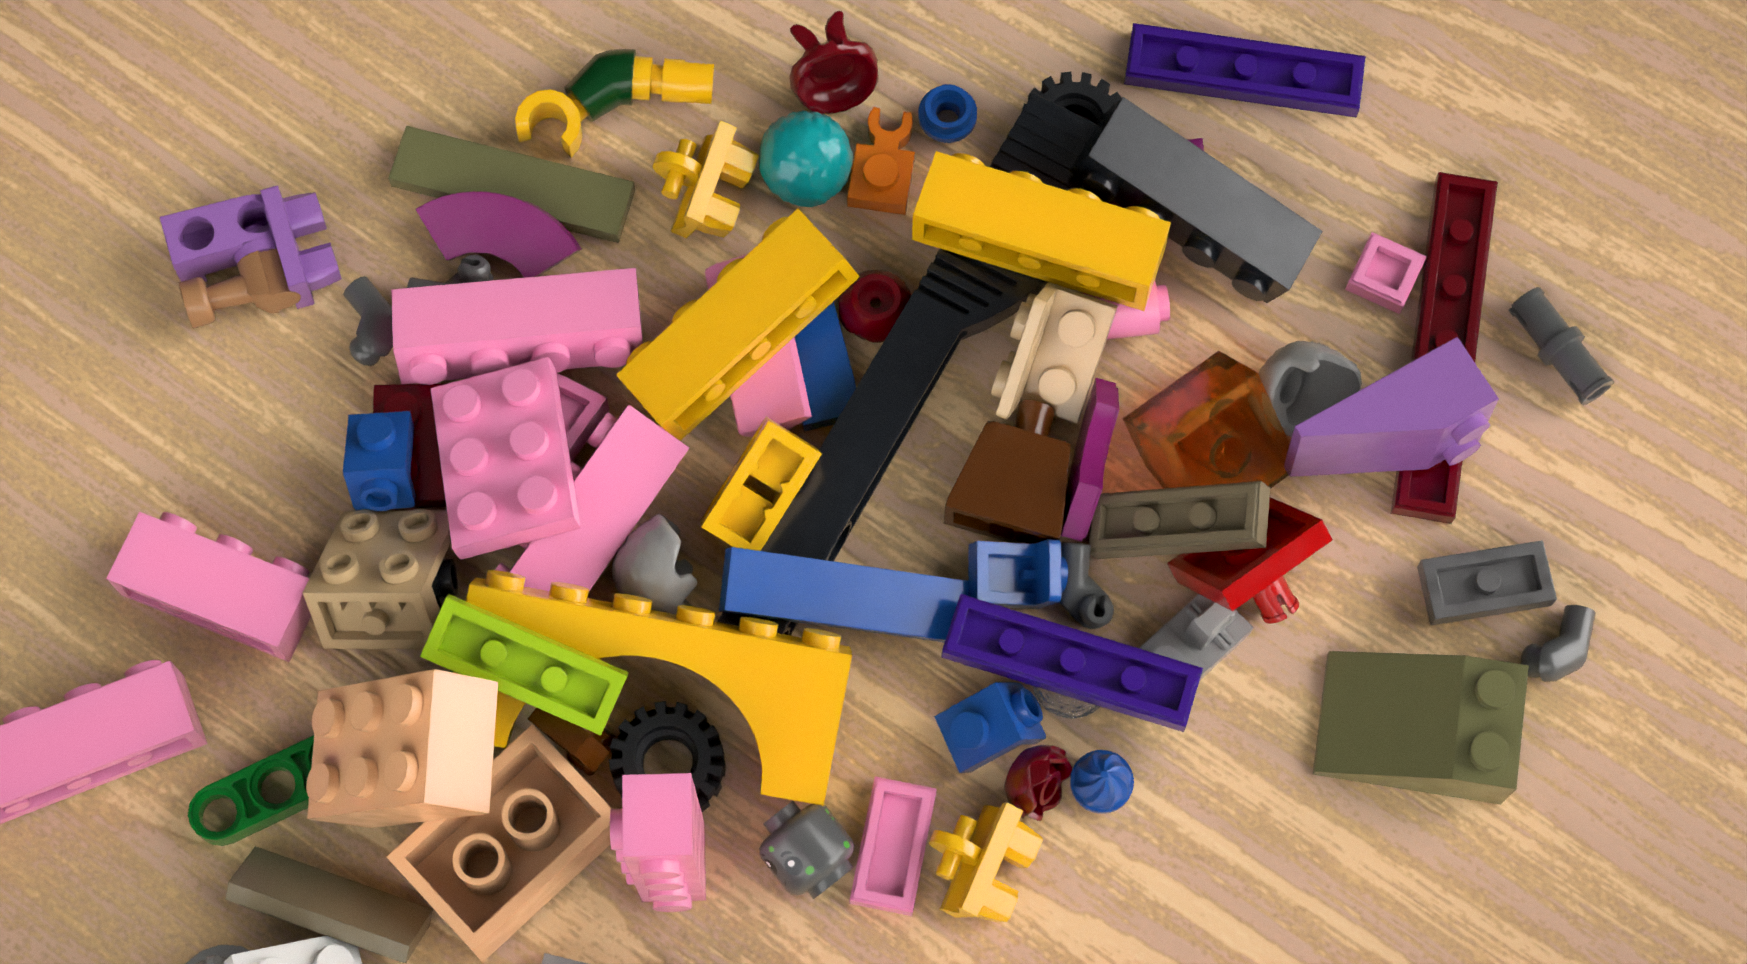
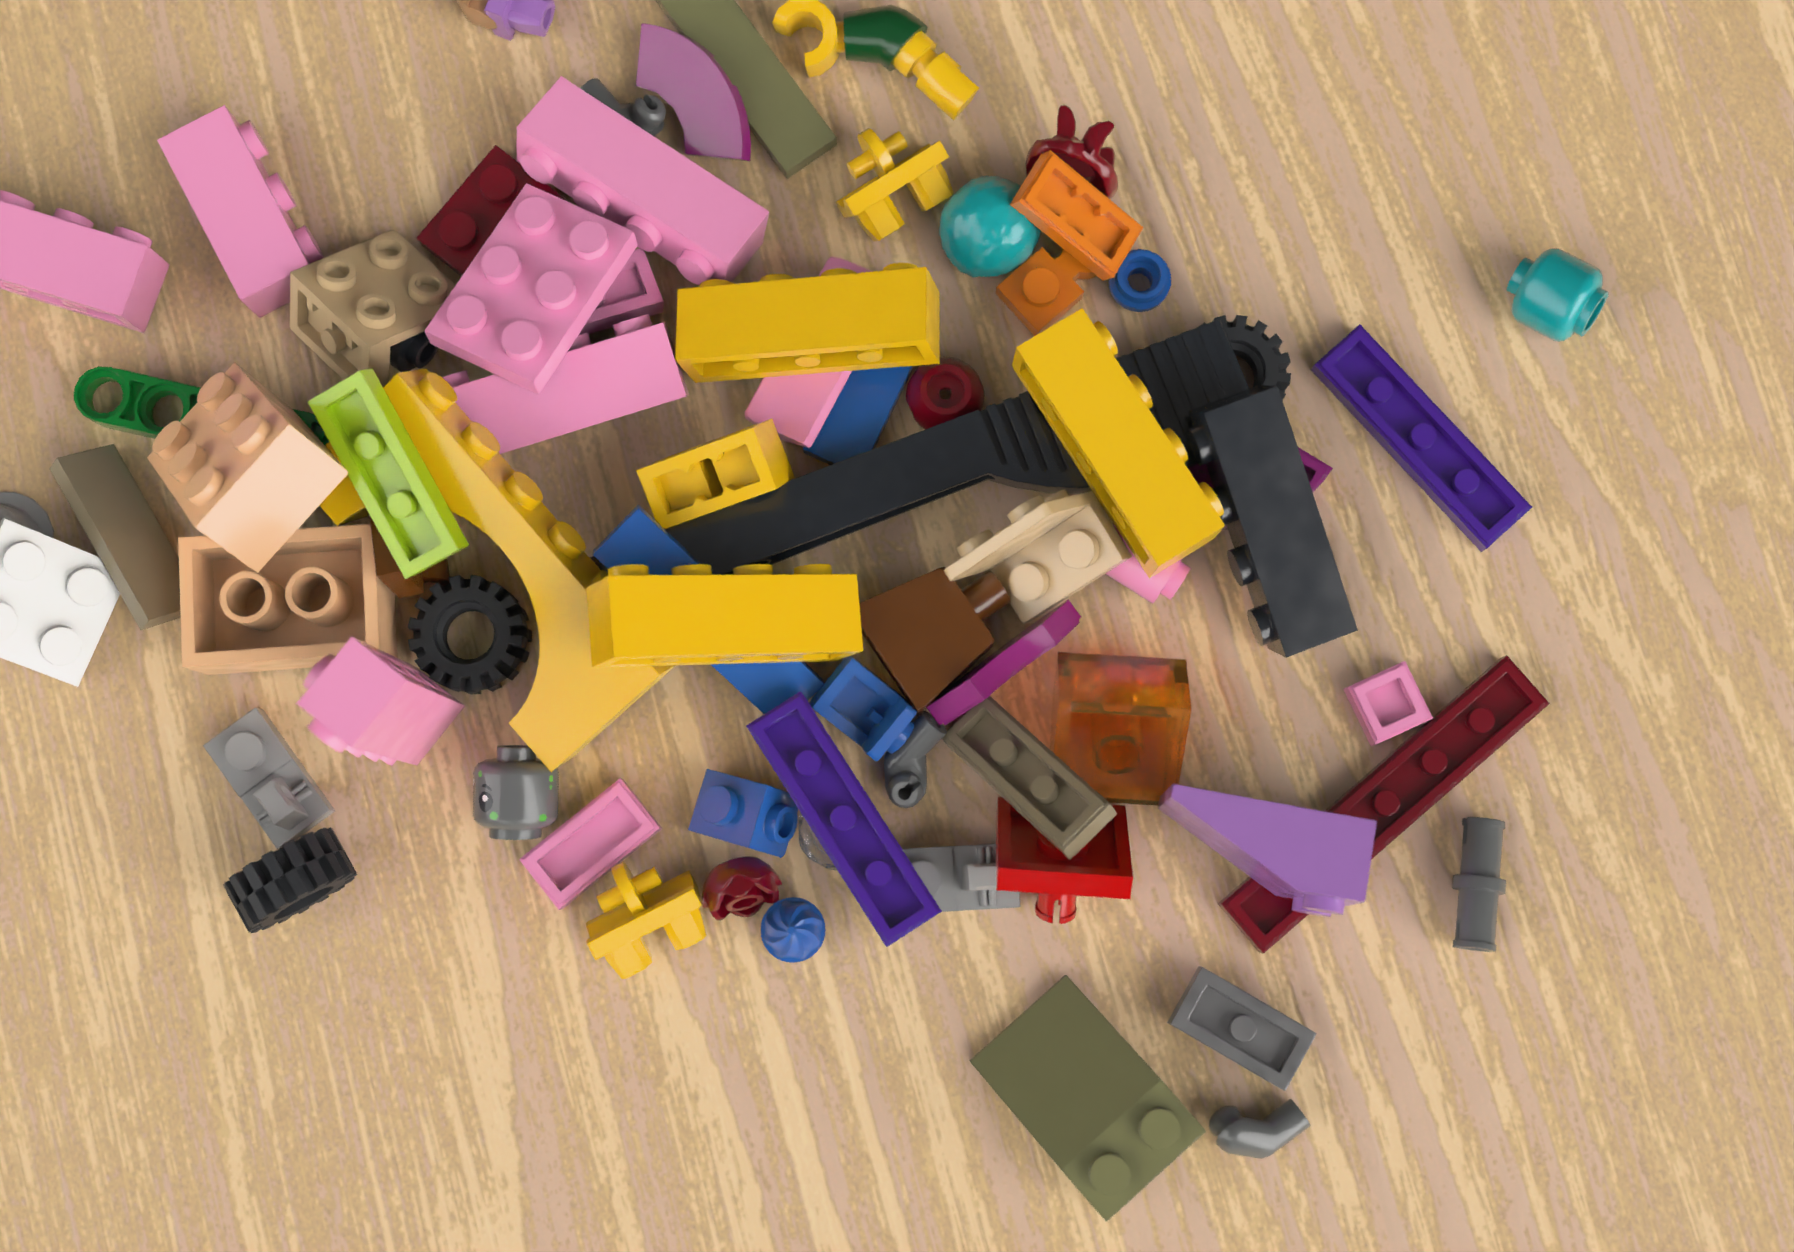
camera: 40 degrees right, 10 degrees up
(375, 326) = (548, 68): dark grey arm -> none
(379, 460) = (440, 210): blue bracket -> none
(649, 566) = (580, 474): light grey hair -> none
(863, 575) = (723, 617): none -> yellow brick
(867, 98) = (1076, 215): none -> orange plate
(1307, 380) = (1233, 750): light grey hair -> none

